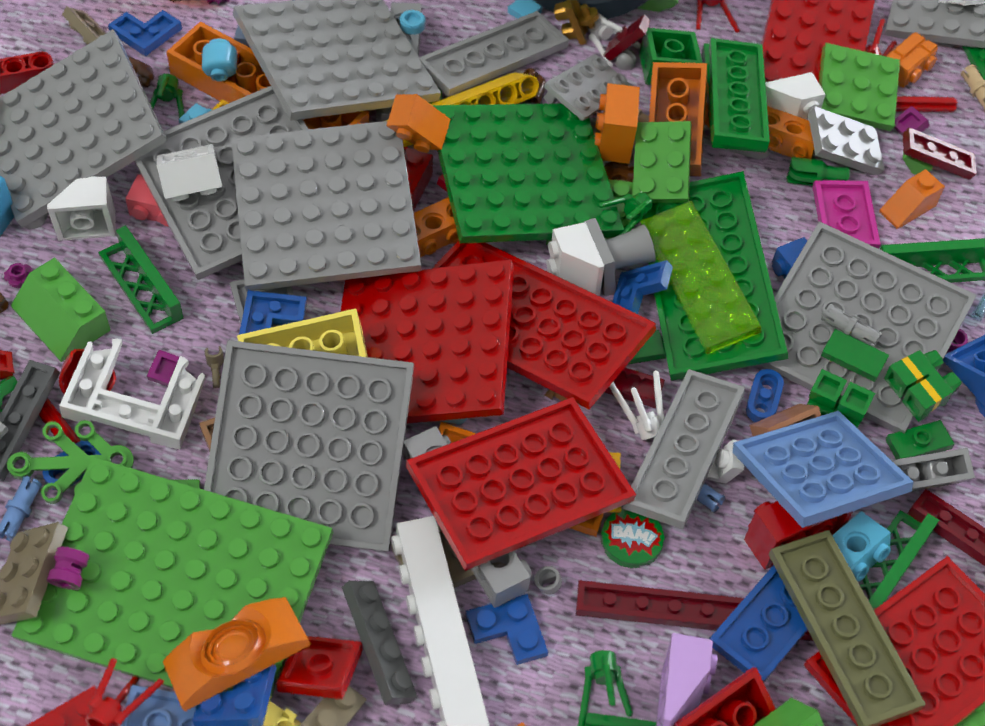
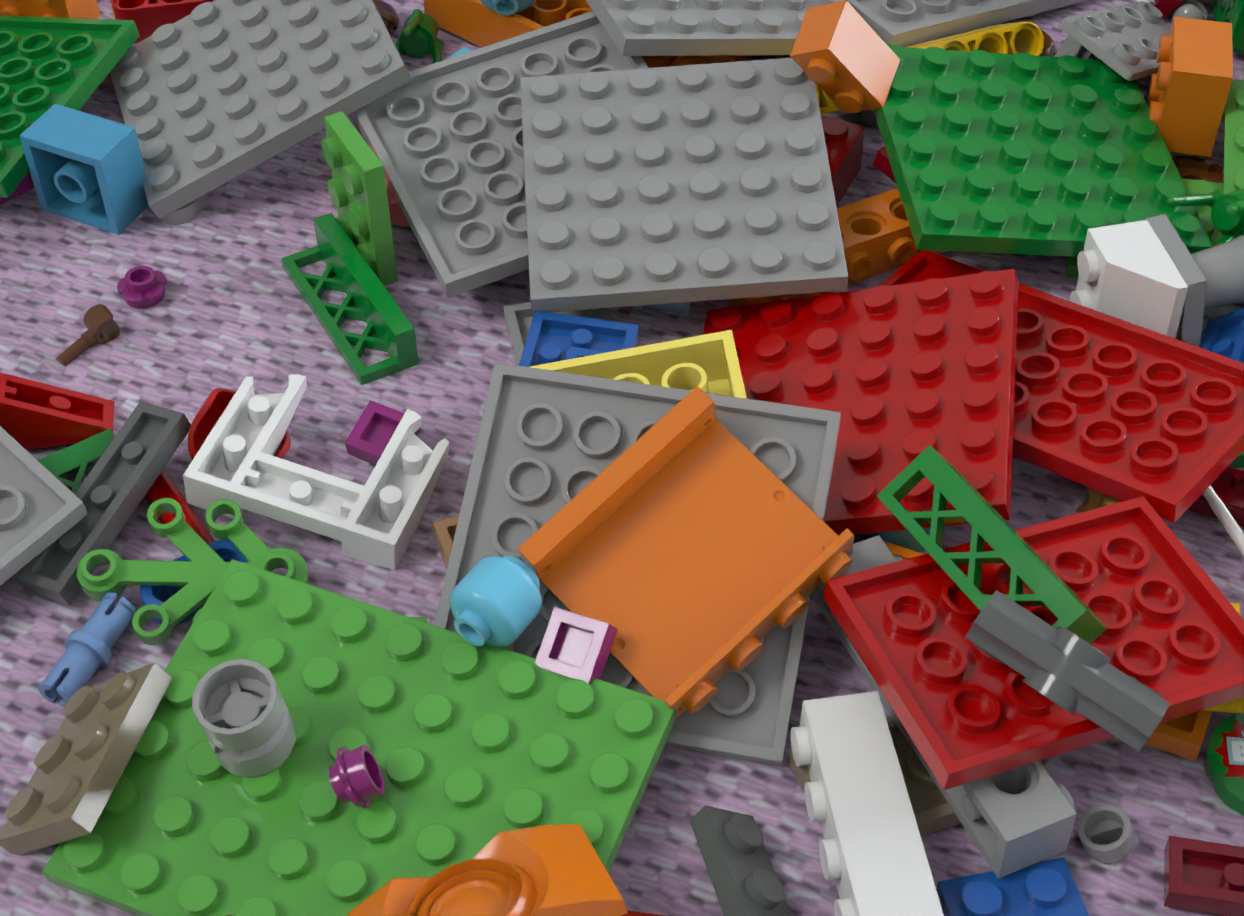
camera: 10 degrees right, 10 degrees down
(59, 310) = (204, 334): bright green slope -> none
(68, 568) = (162, 746): magenta wheel -> none
(83, 210) = (261, 189): white slope -> none
(109, 551) = (244, 717): none -> light grey wheel
(142, 219) = (360, 195): none -> bright green plate
(170, 578) = (356, 776): none -> magenta plate
(189, 172) = (446, 125): white slope -> none
(215, 362) = (466, 430): dark tan hand -> none
(236, 477) = (496, 601): none -> medium azure head
(279, 499) = (575, 645): none -> plate
(335, 446) = (686, 554): none -> orange panel
(498, 434) = (989, 527): none -> green fence
(524, 507) = (1068, 670): none -> dark grey piece

